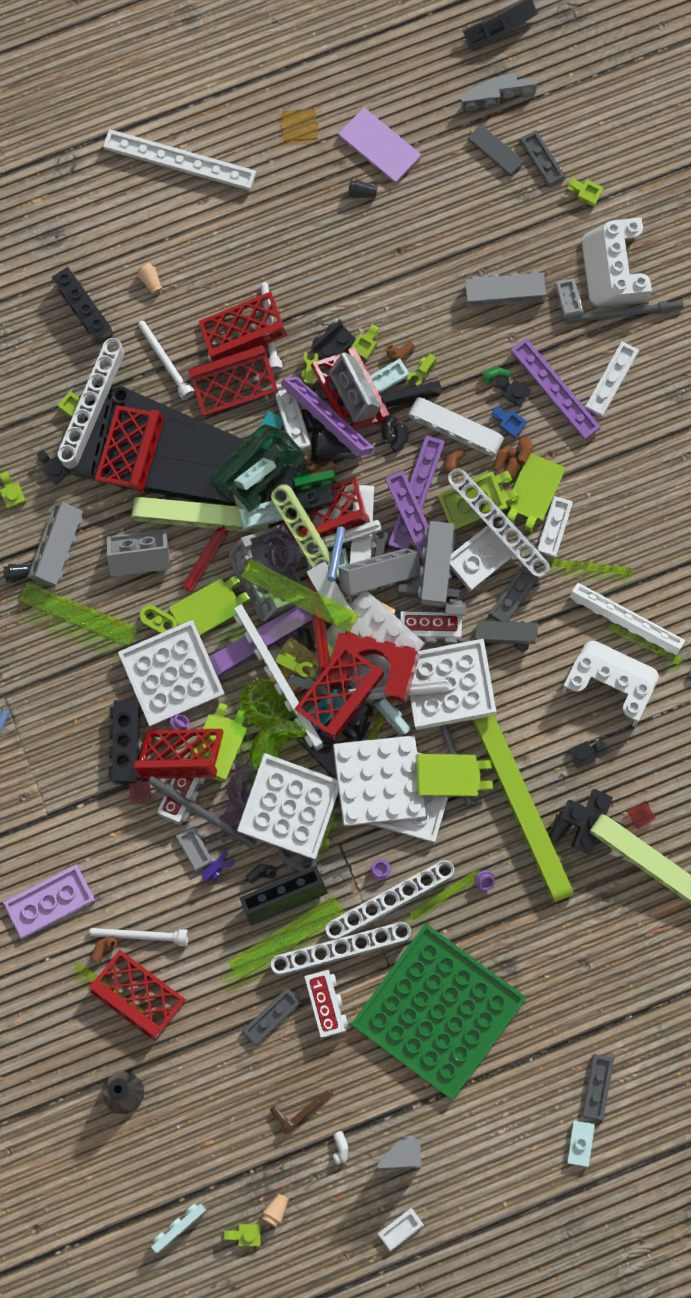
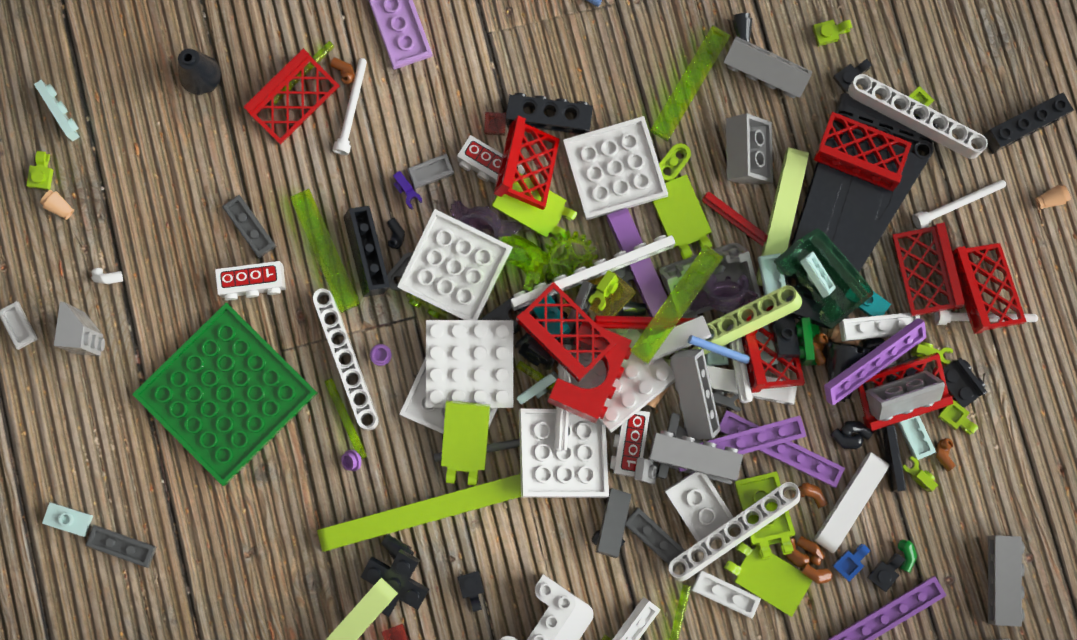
camera: 90 degrees right, 5 degrees up
(167, 790) = (488, 146): dark grey bar -> none
(179, 722) = (562, 170): medium lavender plate -> none
(289, 1125) = (138, 227): reddish brown piece -> none
(349, 942) = (300, 293): white beam -> none

